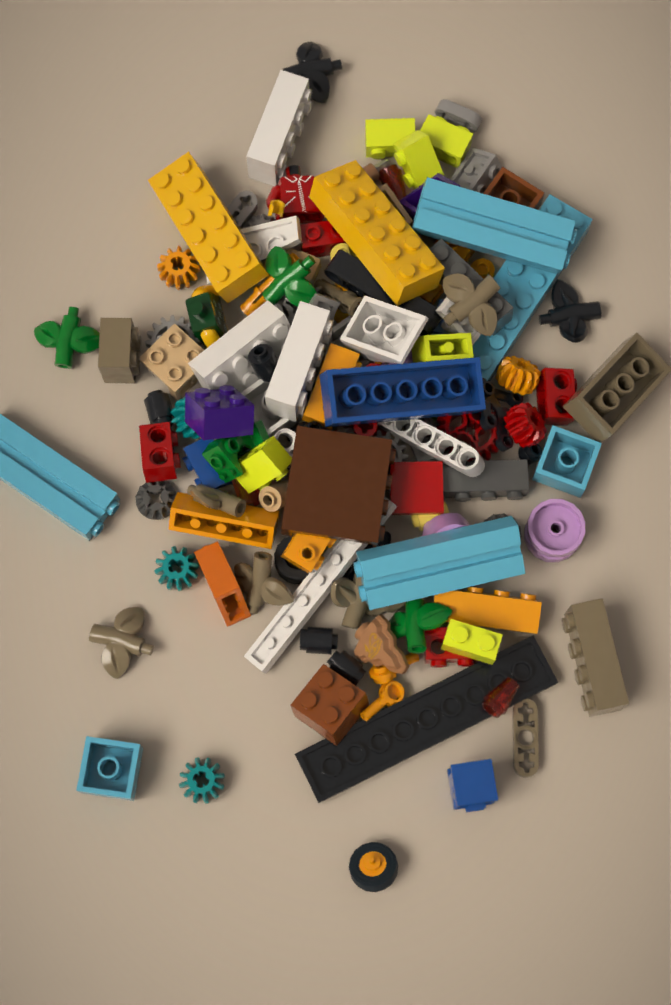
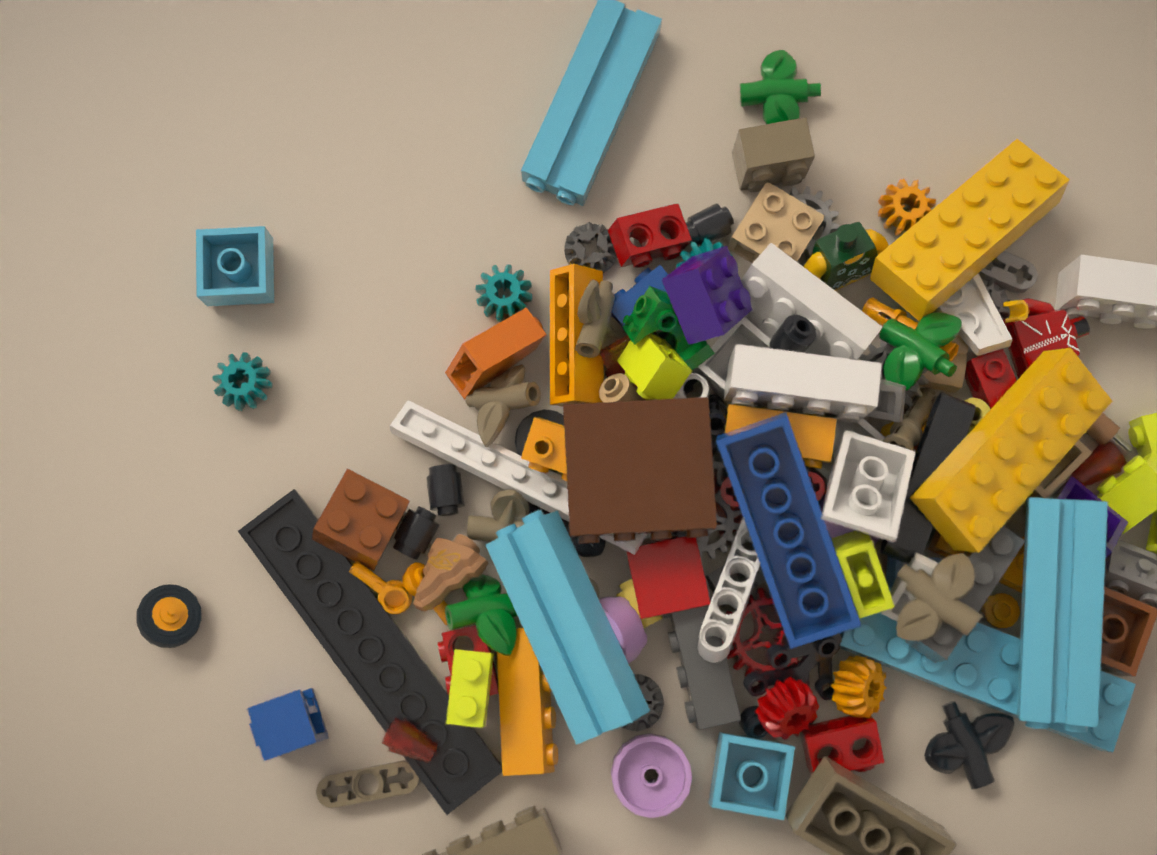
camera: 80 degrees right, 5 degrees up
(121, 640) = (401, 246): dark tan plant -> none

